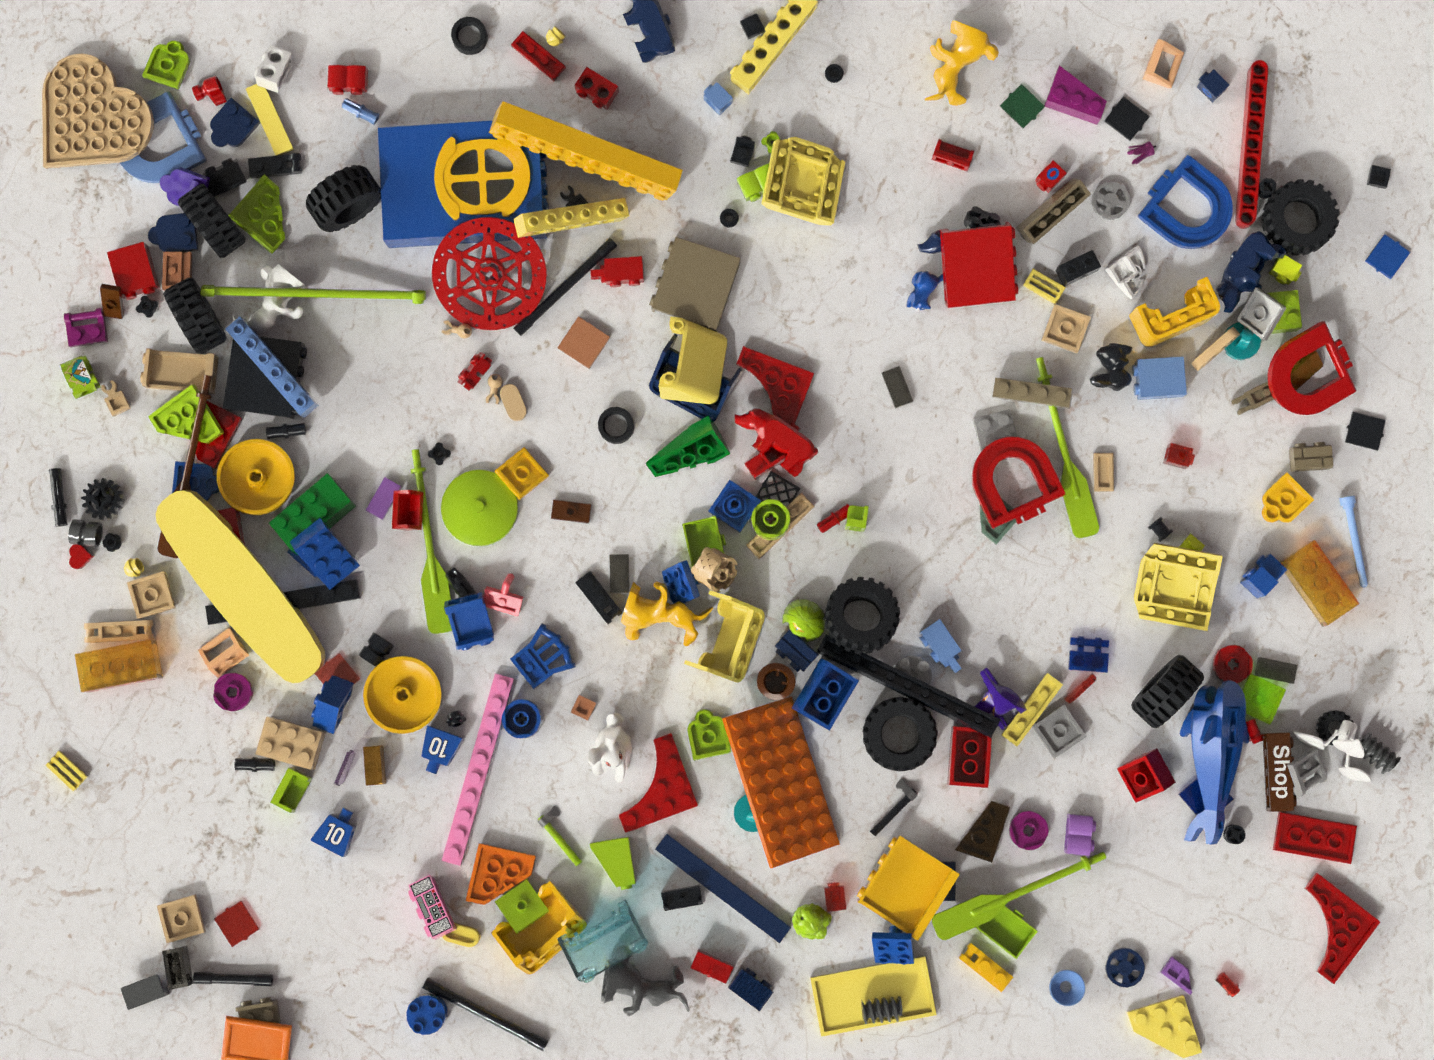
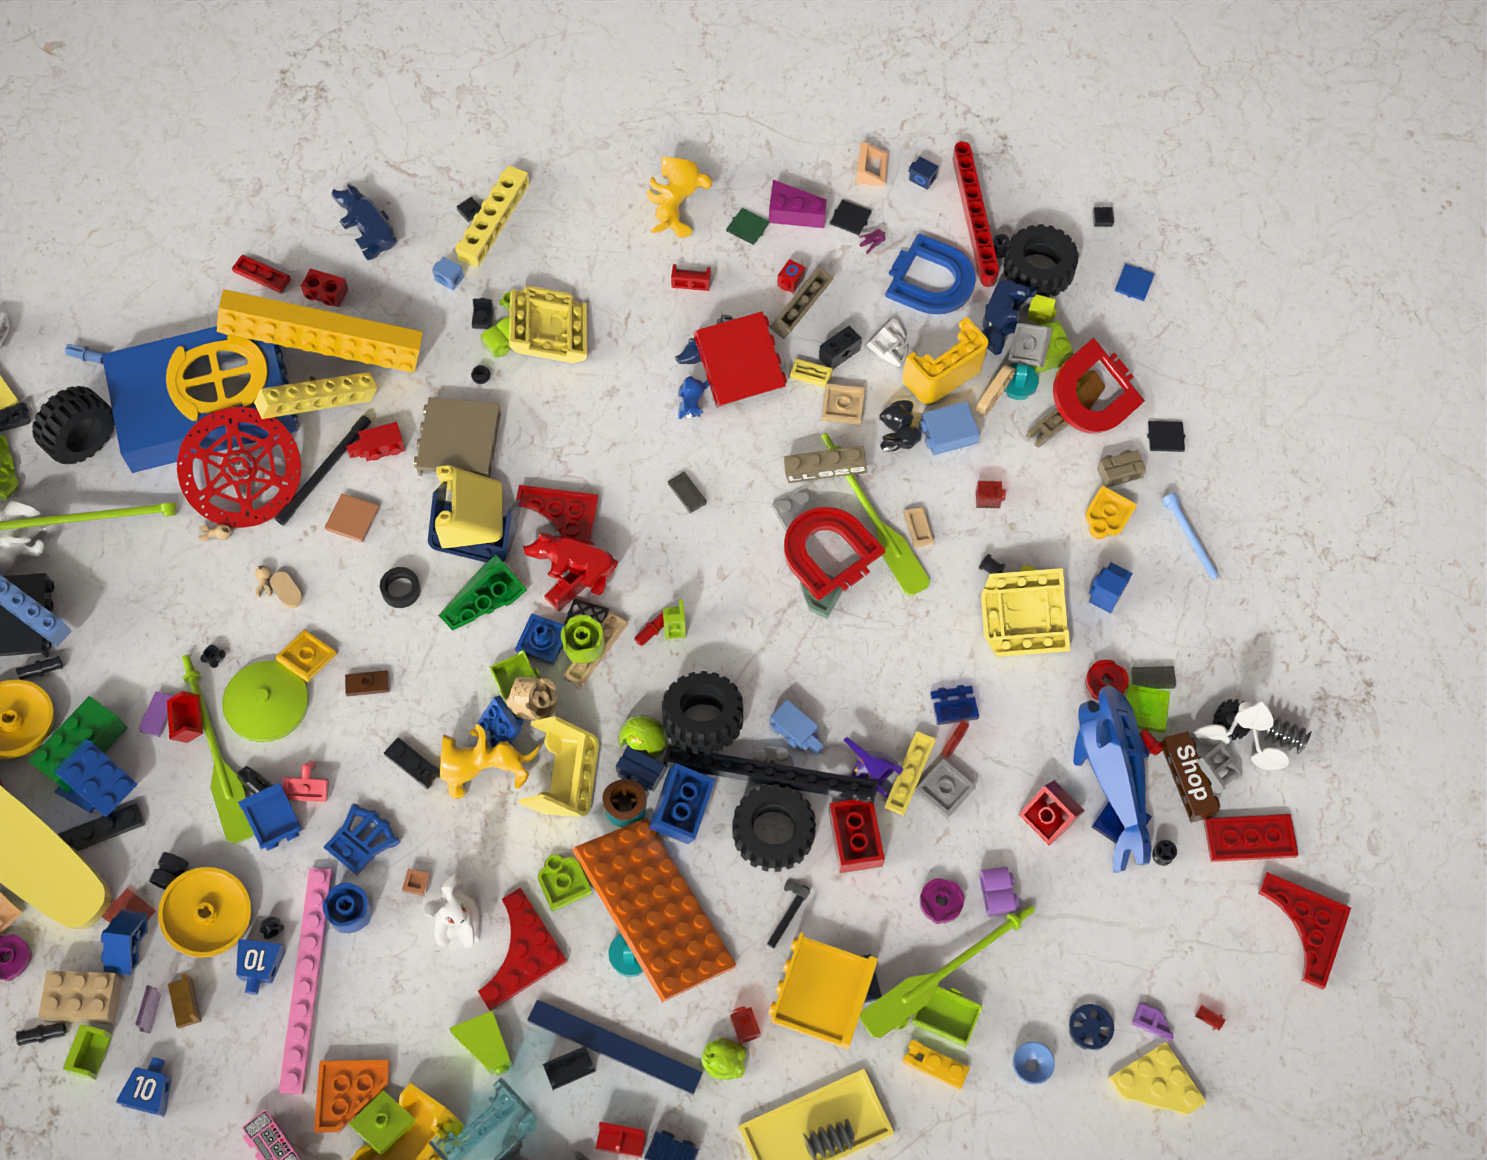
camera: 20 degrees left, 20 degrees down
(347, 79) = (68, 327): red brick -> none
(463, 22) = (188, 256): black tyre -> none
(469, 376) = (243, 560): red hinge -> none
(544, 821) = (393, 1019): lime piece -> none
(555, 37) = (275, 253): light yellow plate -> none
(619, 573) = (430, 734): clear smoke tile -> none
(834, 73) = (558, 232): black plate -> none
(893, 947) = (824, 1063): blue plate -> none
(985, 833) = (895, 915): dark brown wing -> none
(1110, 200) = (854, 286): light grey piece -> none
(1167, 691) = (1047, 712): black tyre -> none
(1319, 583) = (1169, 581): clear yellow brick -> none

